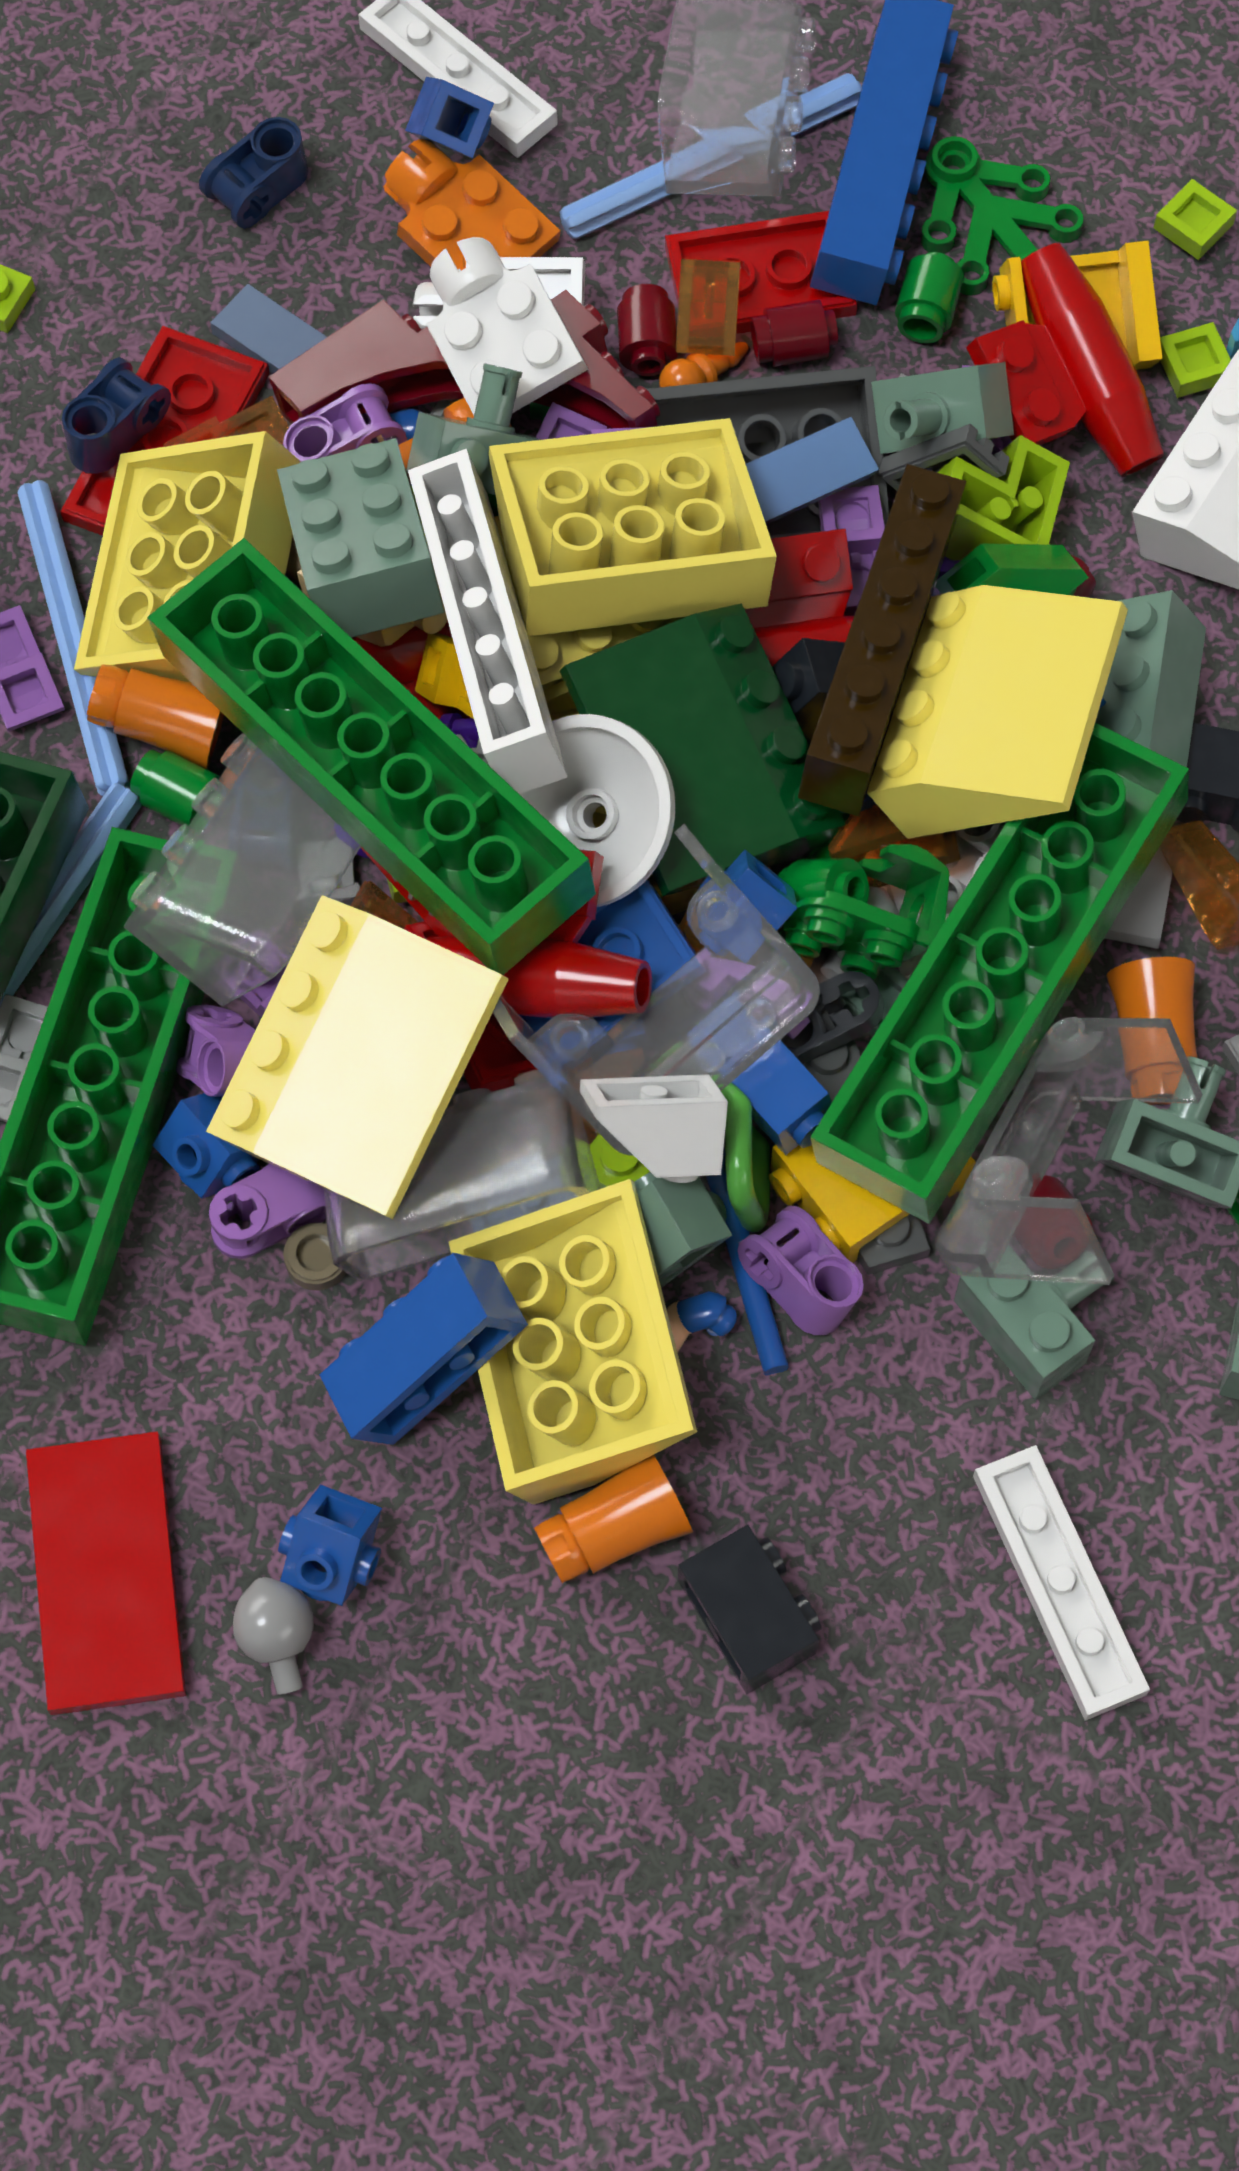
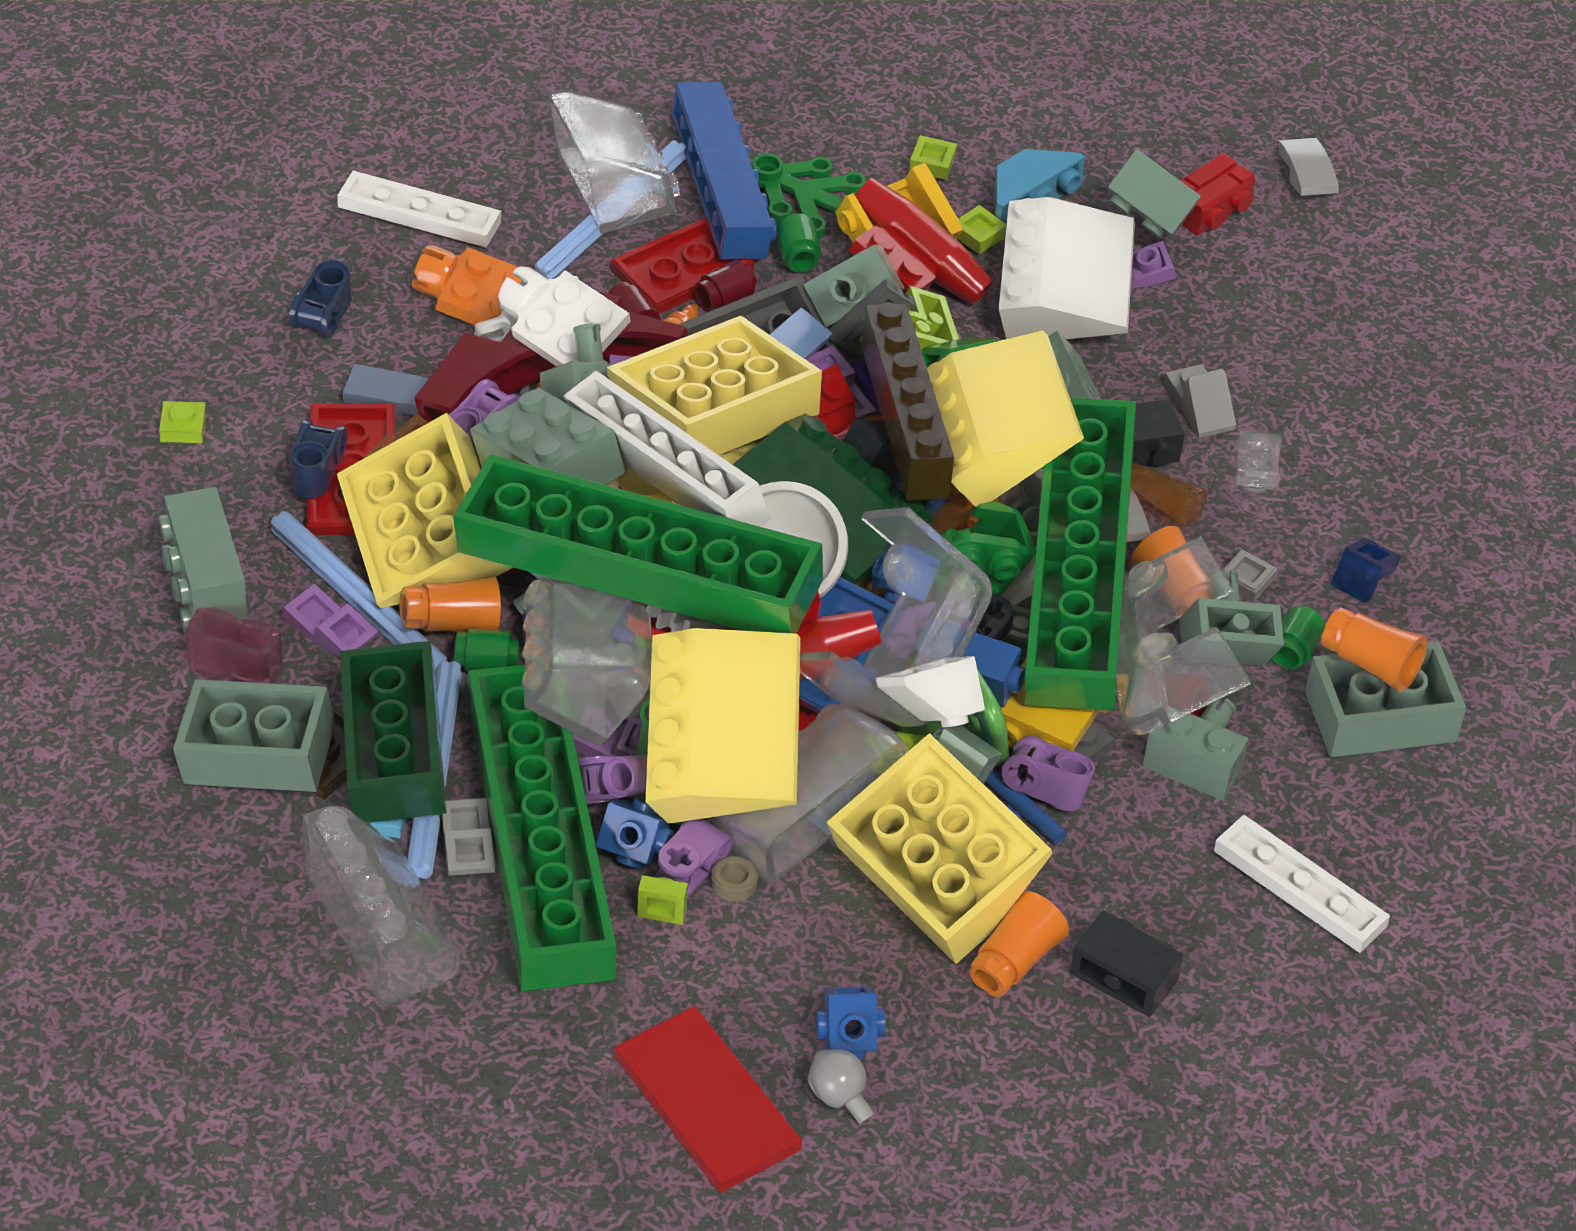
camera: 30 degrees left, 20 degrees down
(199, 1255) = (662, 899): none -> lime plate
(422, 1348) = (847, 882): blue brick -> none
(450, 117) = (440, 225): blue brick -> none
(708, 306) = (667, 280): clear orange slope -> none

